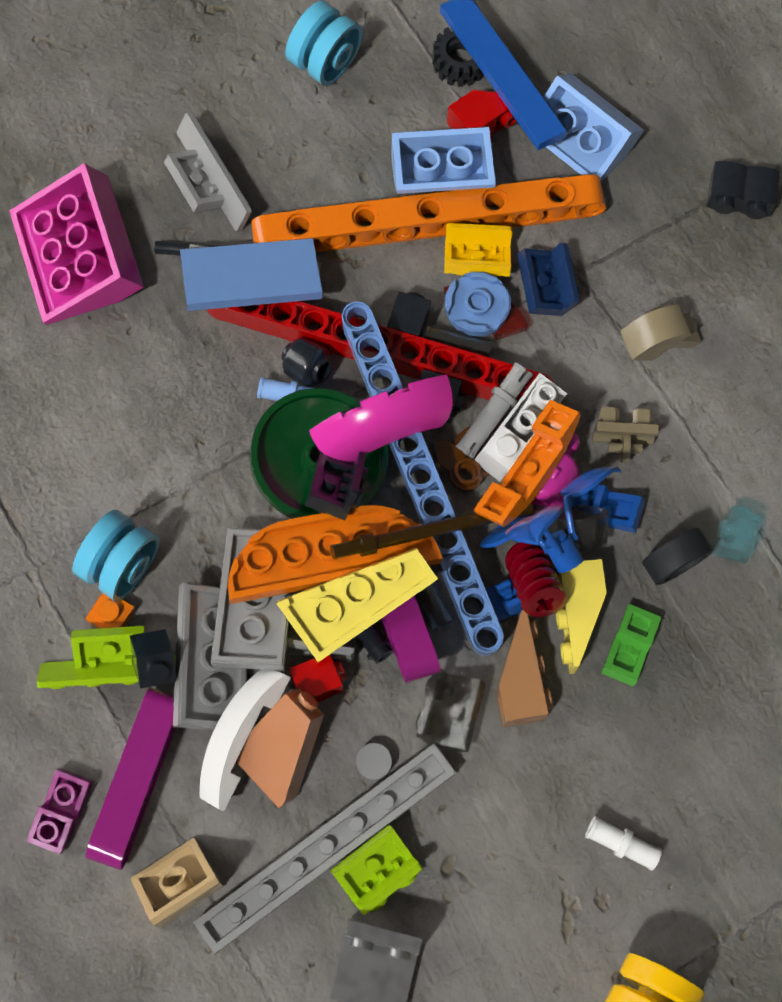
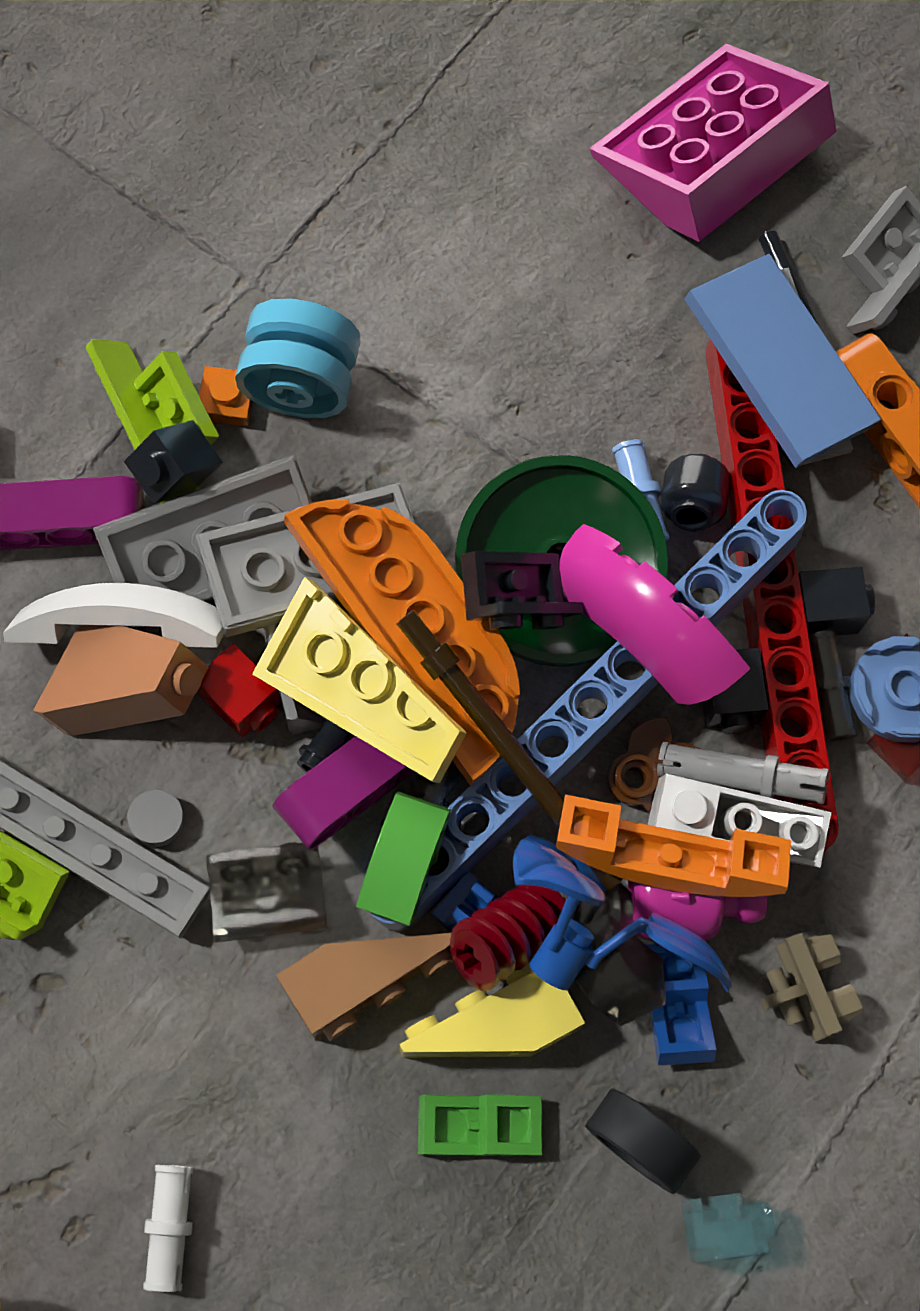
camera: 65 degrees right, 0 degrees up
(470, 617) = (403, 858): none -> bright green slope

